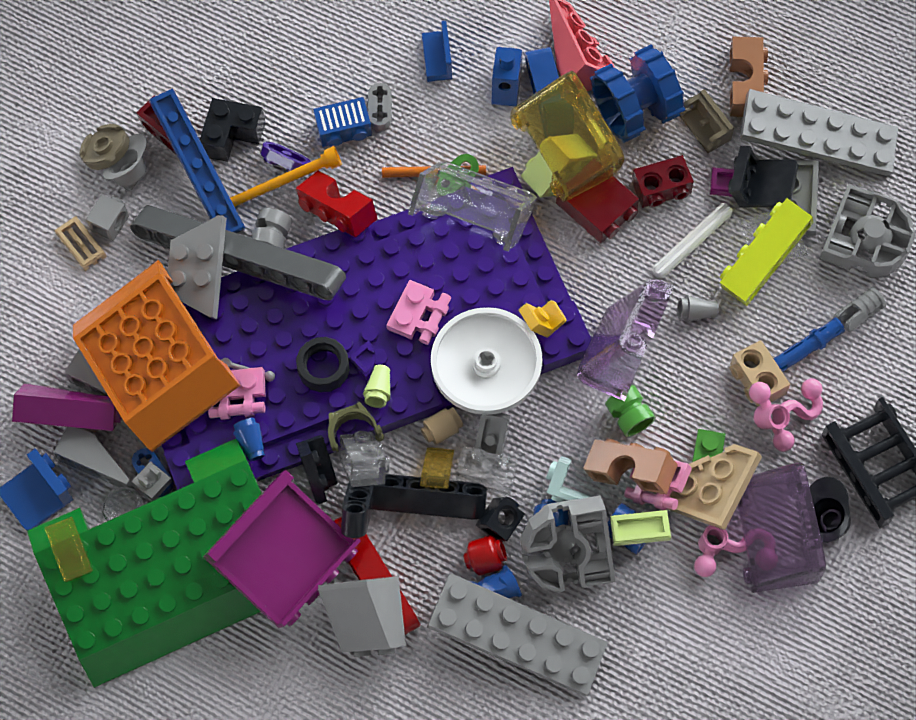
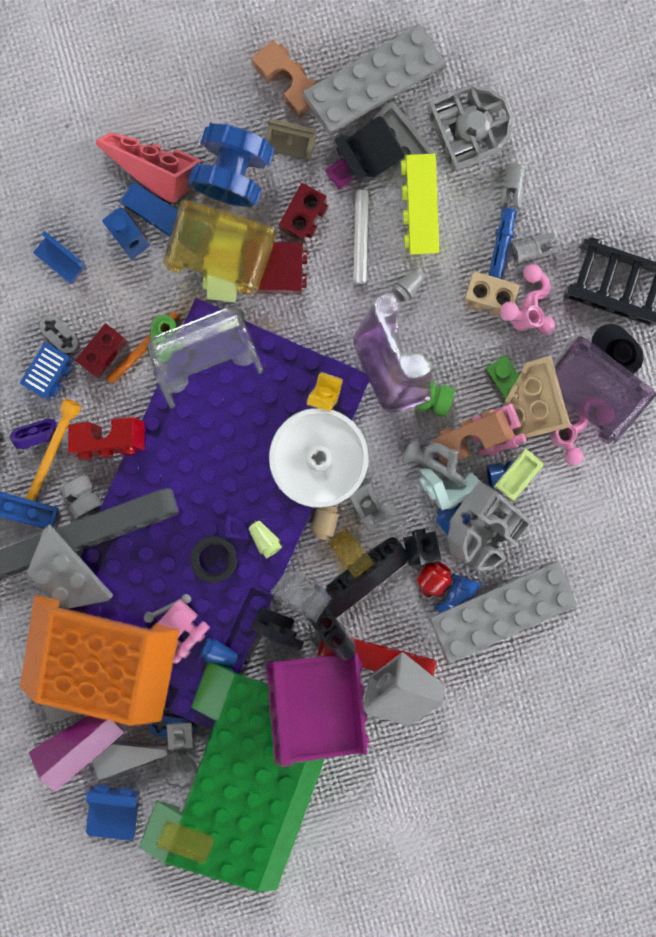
camera: 55 degrees left, 20 degrees up
(352, 412) = (259, 579): olive helmet -> none
(399, 143) = (101, 350): none -> dark red brick
(411, 308) = (232, 466): bright pink plate -> none
(572, 438) = (415, 454): none -> light grey piece
(827, 369) = (531, 248): none -> light grey hinge

